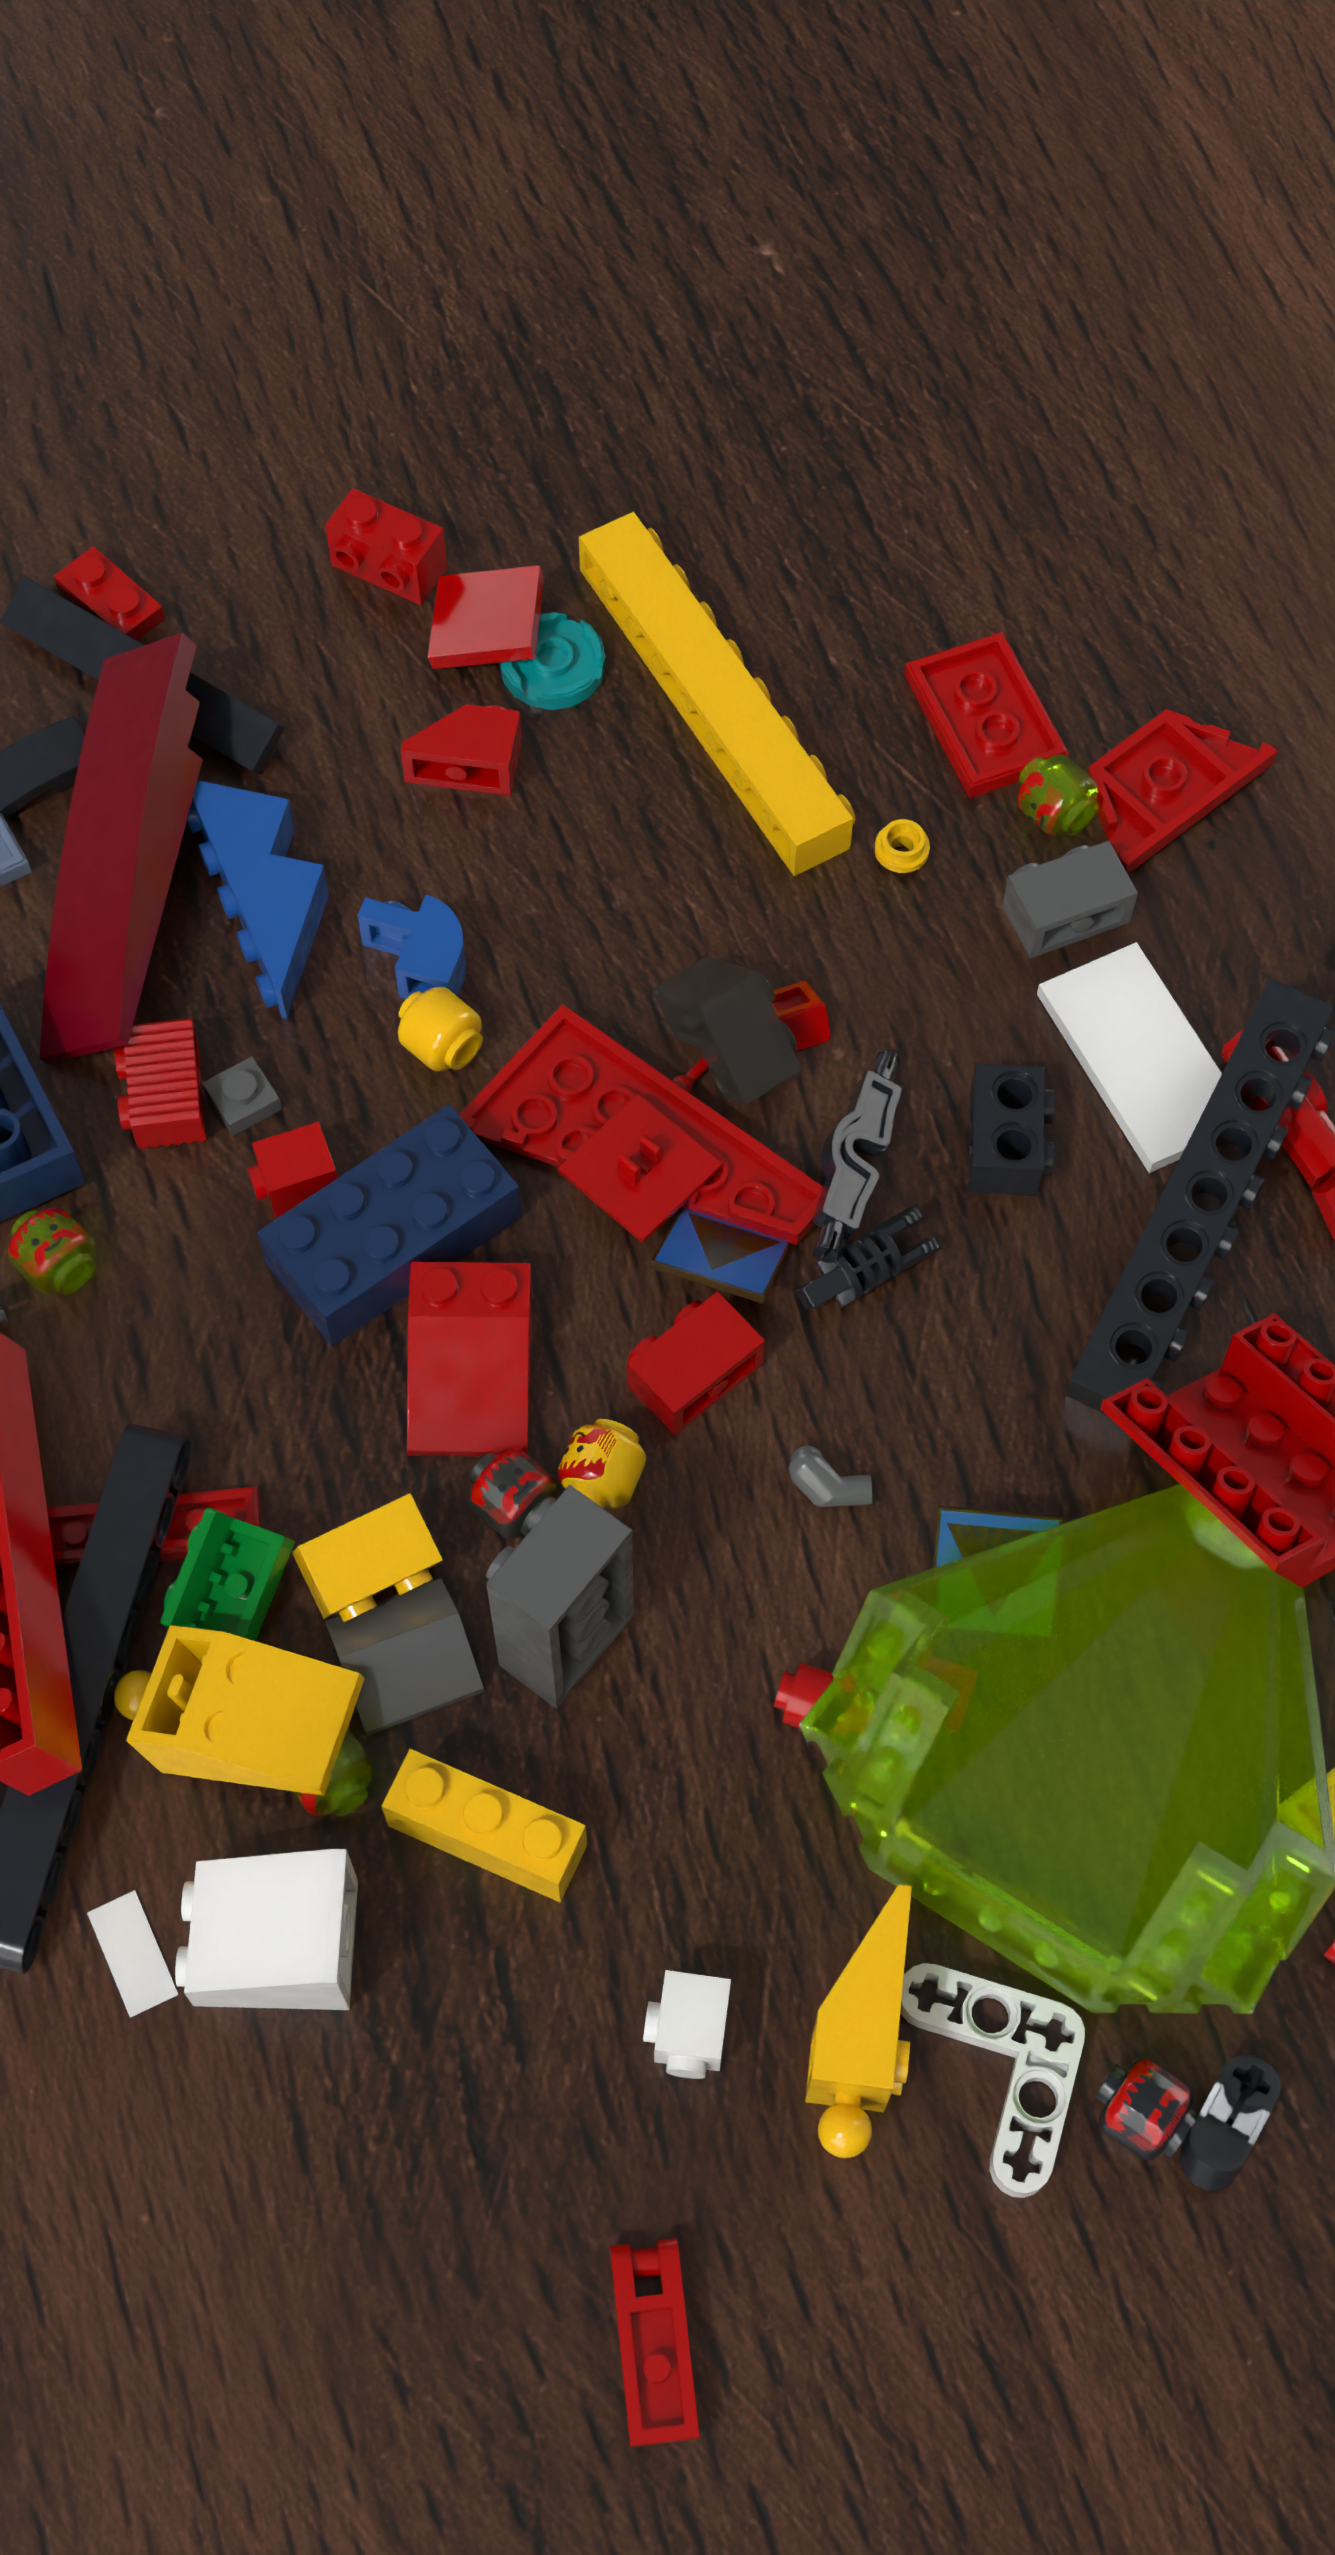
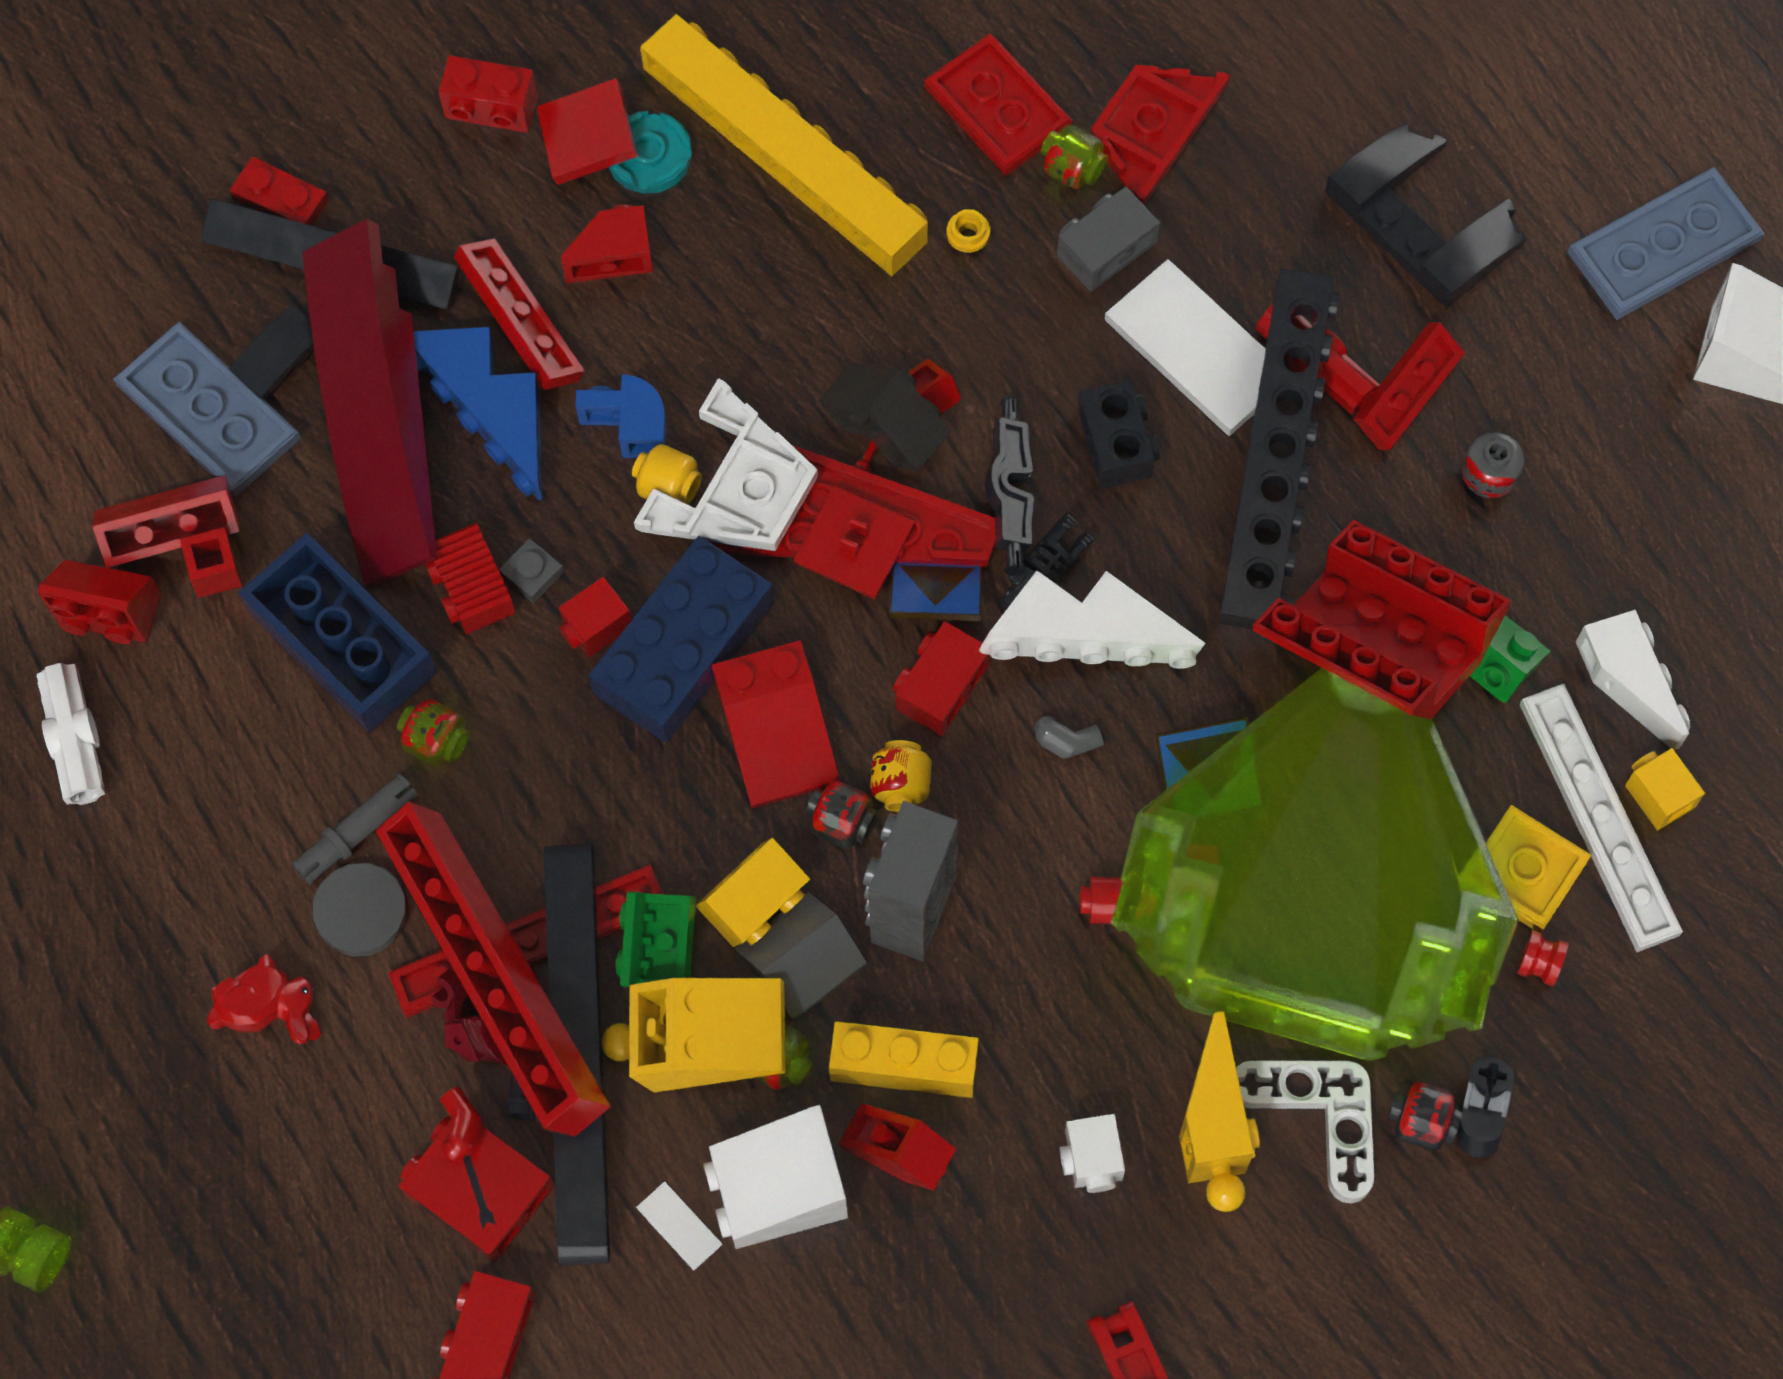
camera: 15 degrees left, 5 degrees up
(333, 798) = (519, 314): none -> red plate
(442, 1936) = (898, 1145): none -> red slope
(533, 1072) = (752, 491): none -> white wing
(914, 1355) = (1107, 625): none -> white slope

